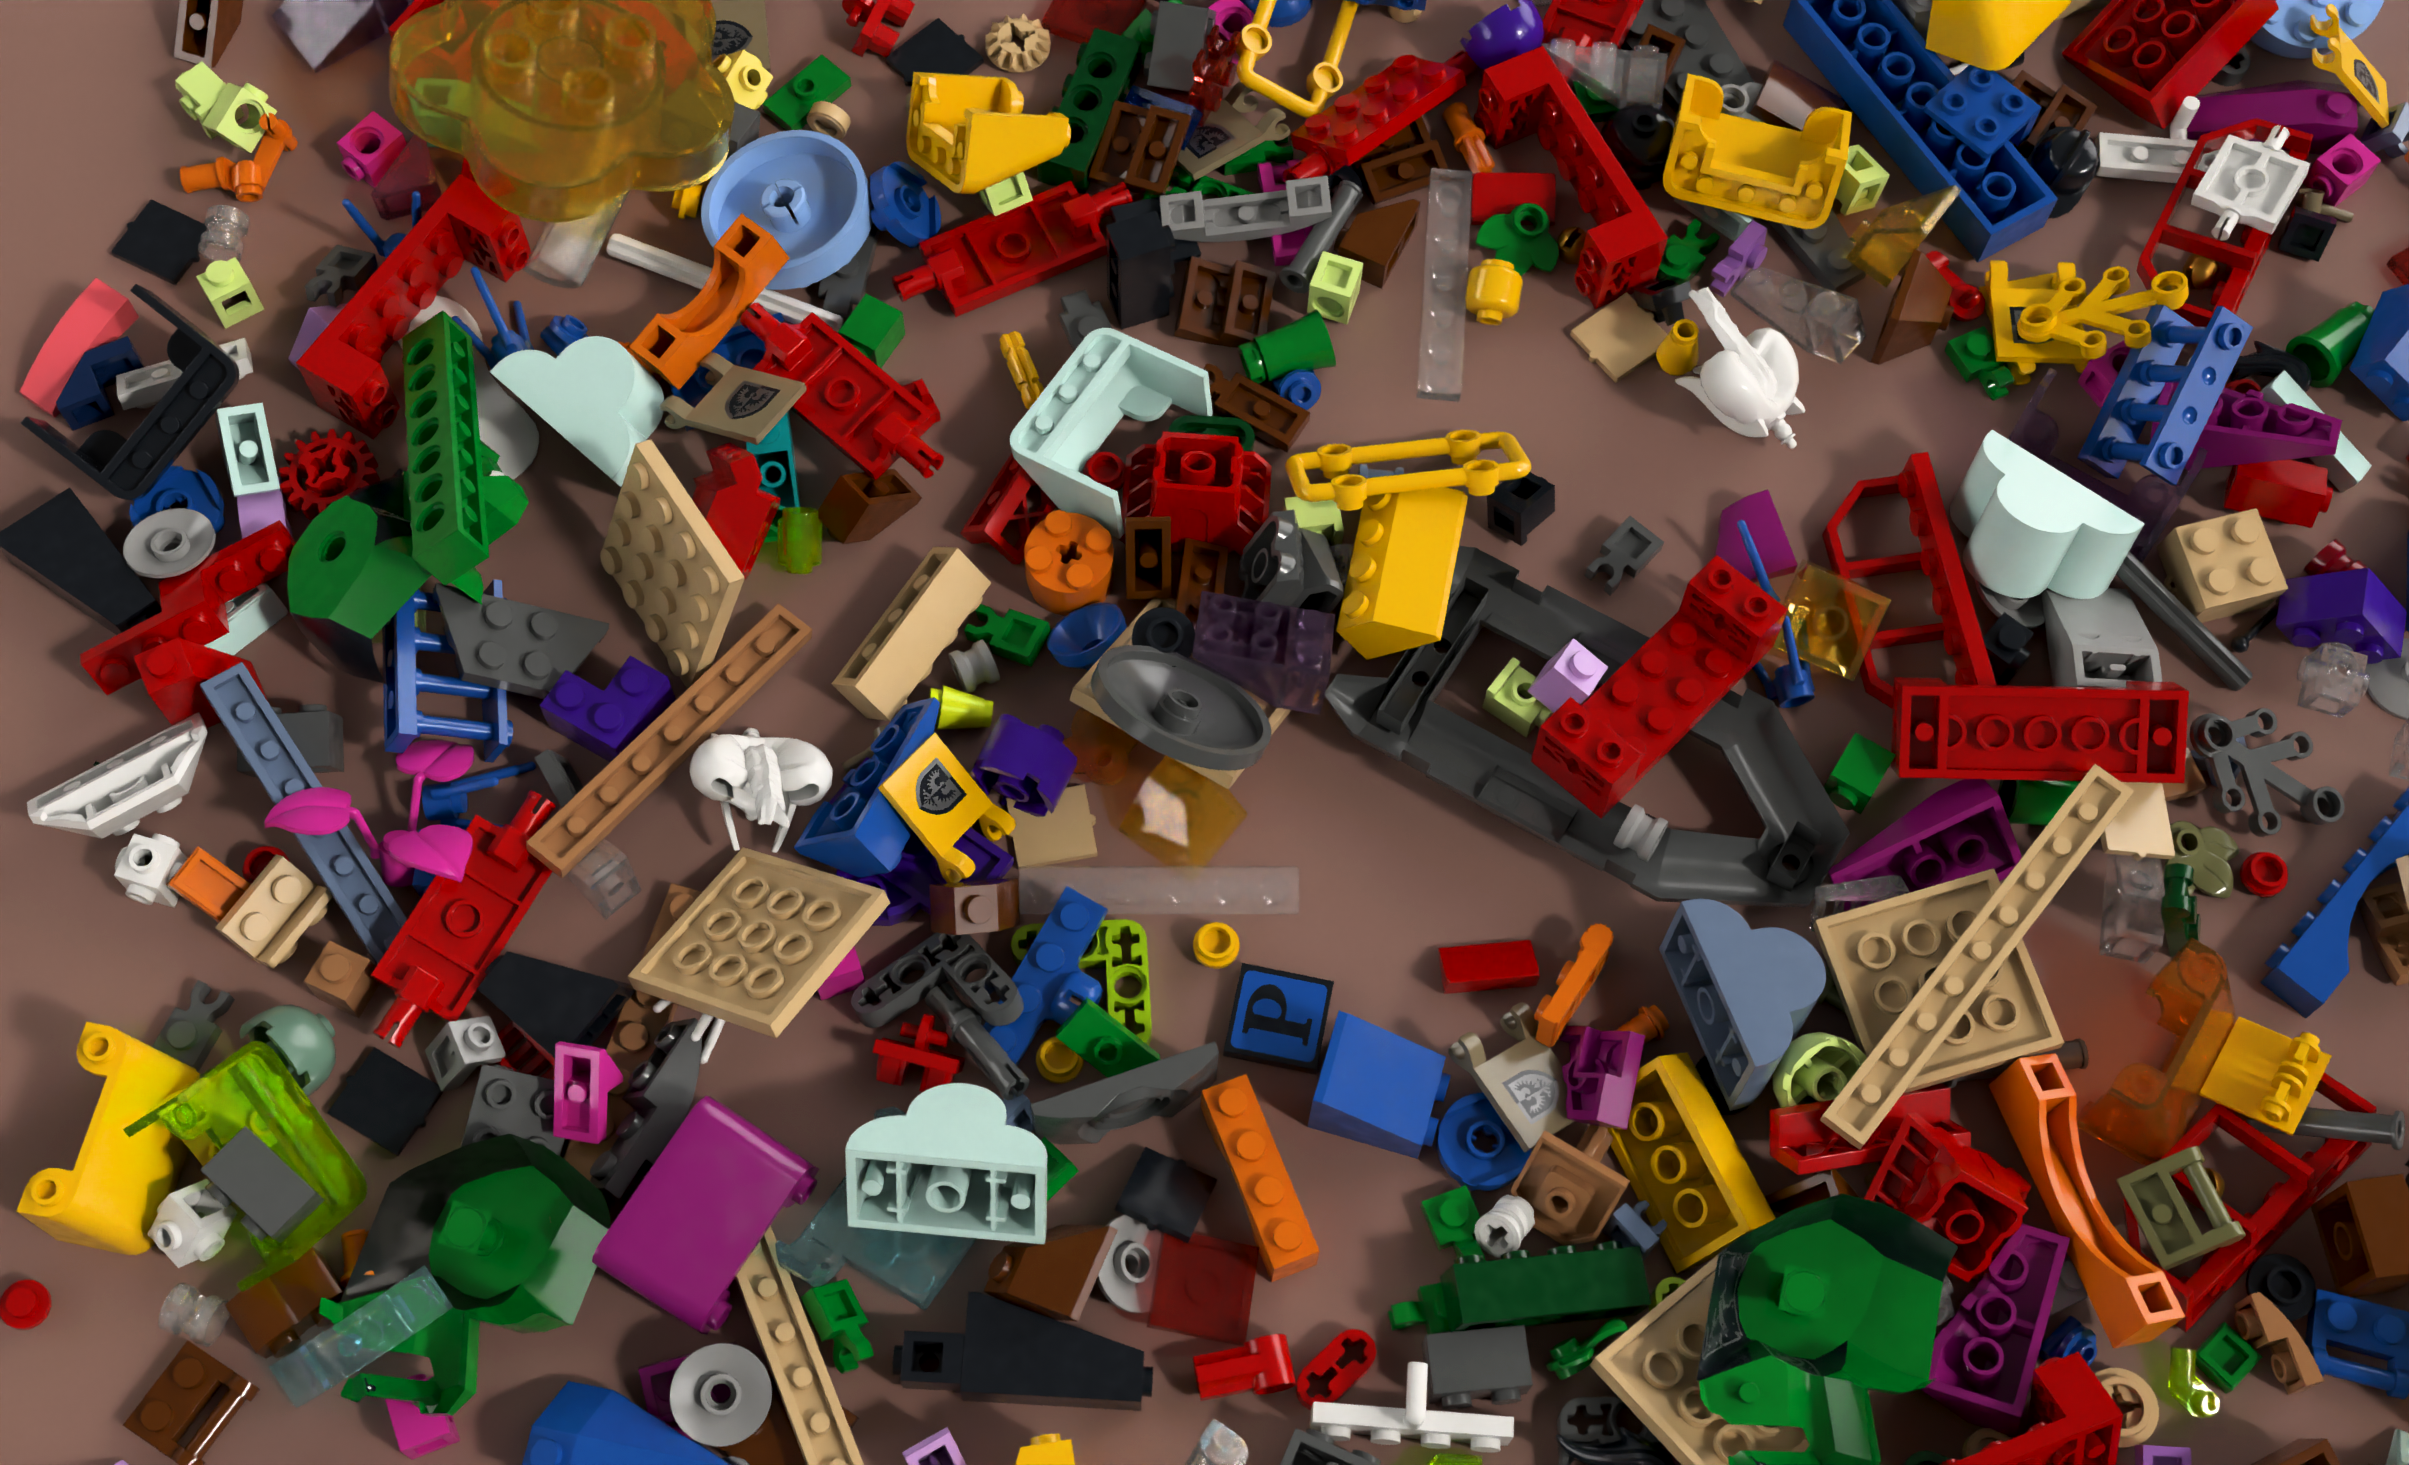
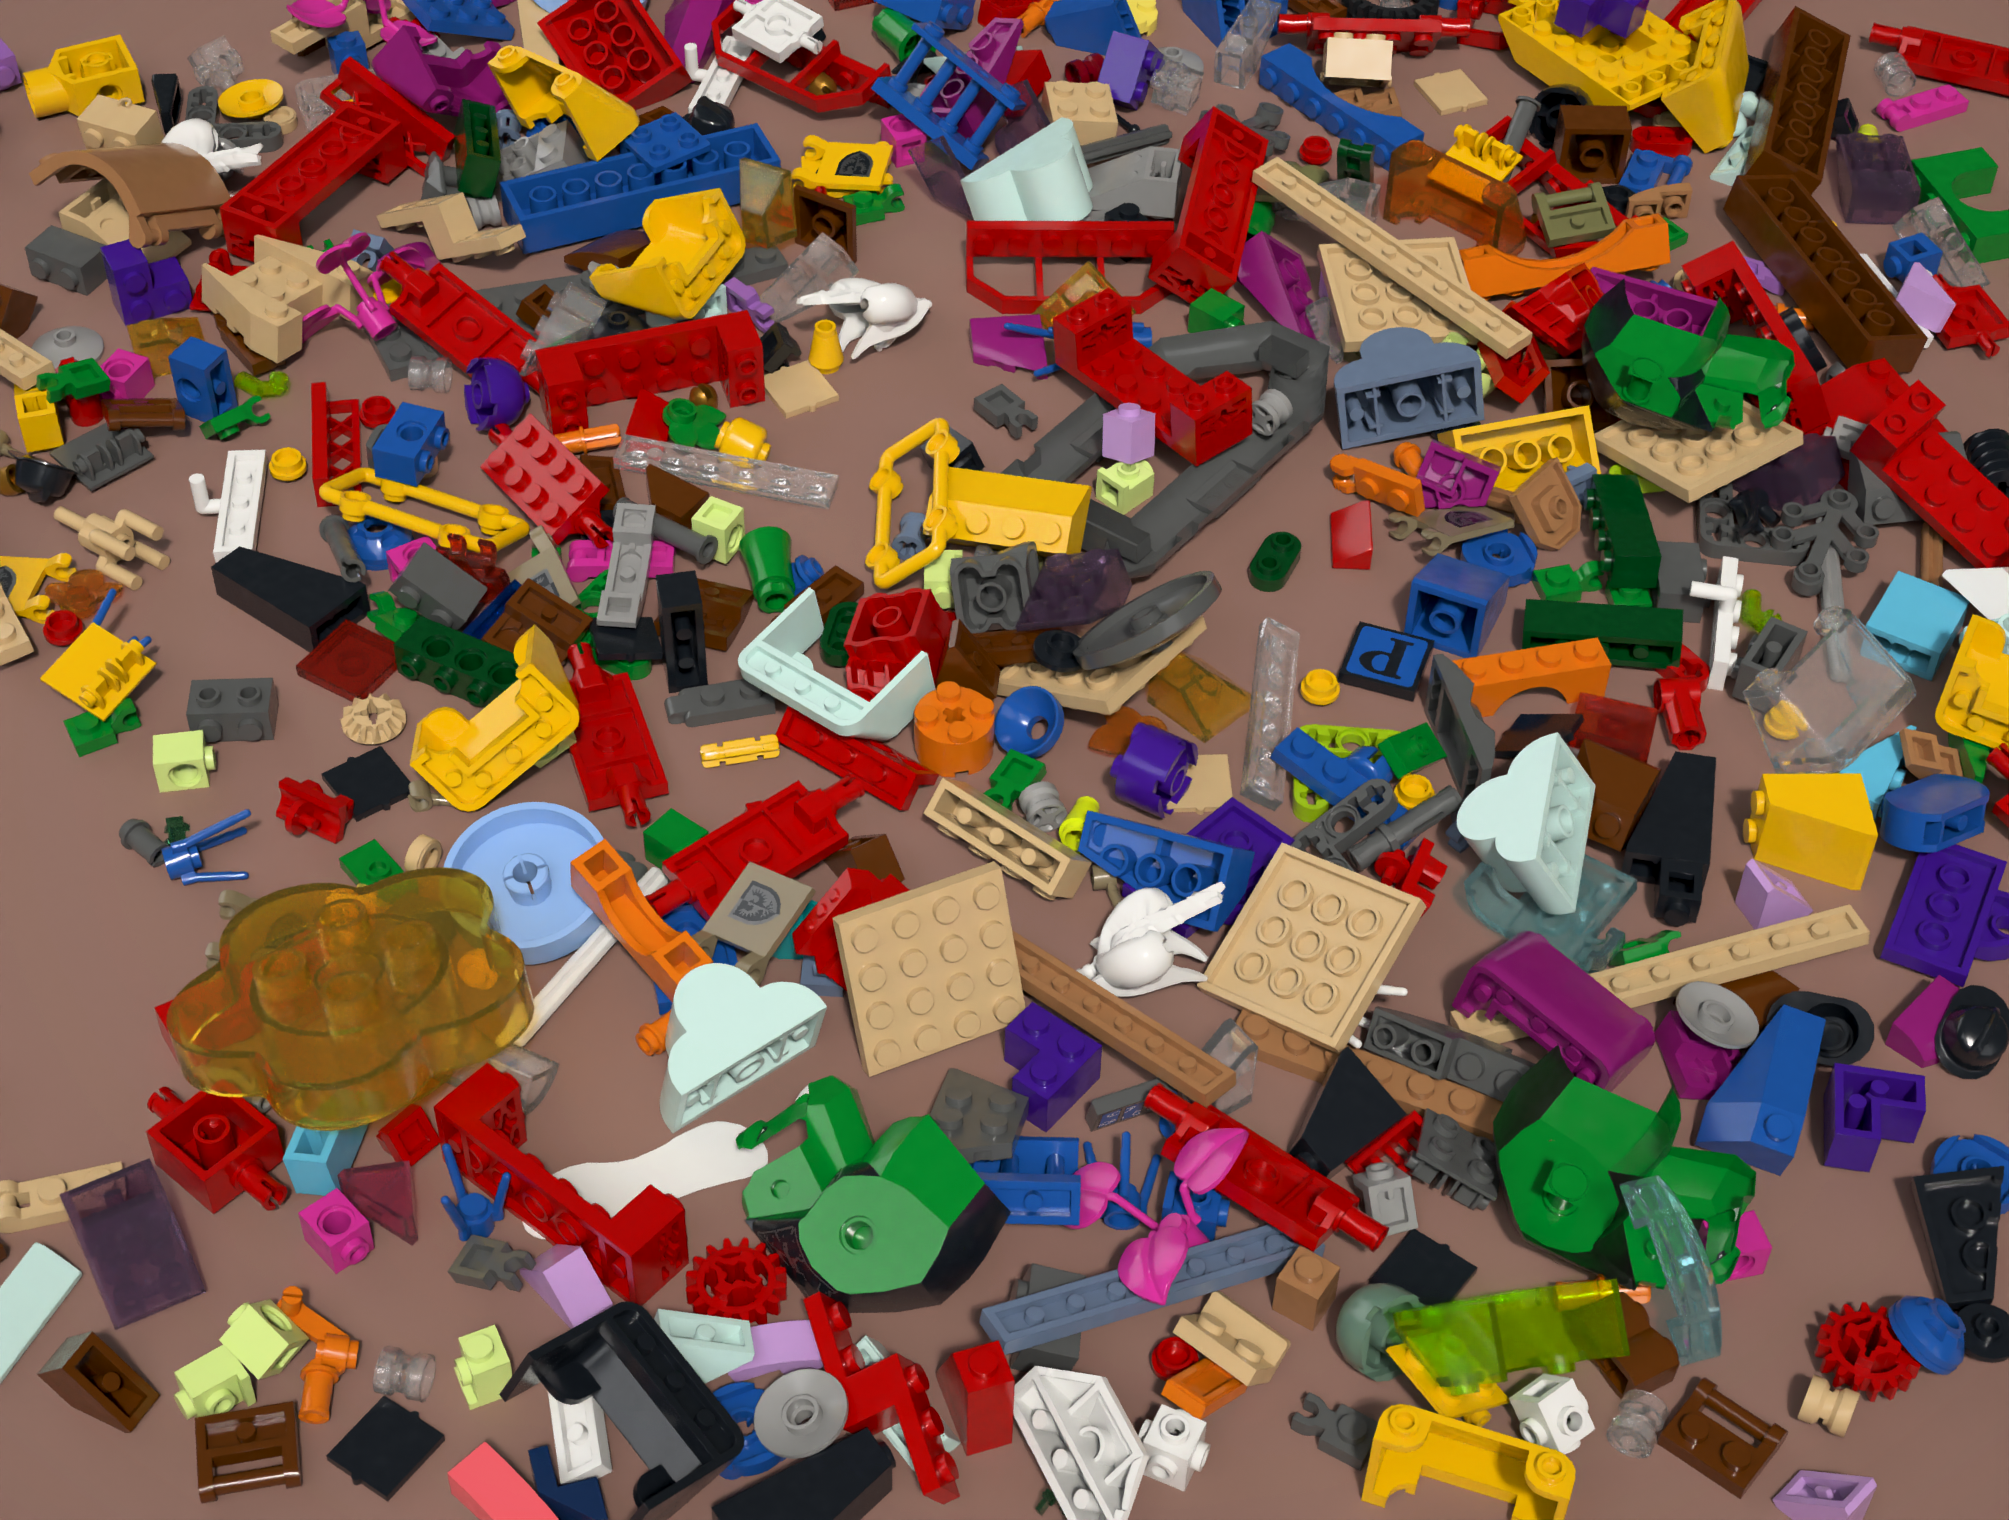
camera: 80 degrees left, 20 degrees down
(160, 135) = (243, 1438): none -> reddish brown plate
(261, 1185) = (1537, 1326): dark grey brick -> none
(444, 450) = (922, 1089): green brick -> none
(506, 340) = (620, 1126): blue plant -> none
(563, 332) = (617, 1085): blue plate -> none
(581, 1091) = (1445, 1085): dark pink slope -> none
(903, 204) = (573, 800): blue plate -> none
(941, 804) = (1189, 820): yellow flag -> none
(974, 906) = (1287, 810): reddish brown slope -> none
(1353, 1267) = (1627, 633): none -> dark green brick
(1427, 884) = (1275, 562): none -> dark green plate
(1504, 1225) = (1568, 543): white bush -> none
(1572, 1357) = (1668, 514): green plate -> none
(2047, 321) = (865, 149): yellow plant -> none
(2187, 1388) = (1689, 251): clear neon green arm -> none

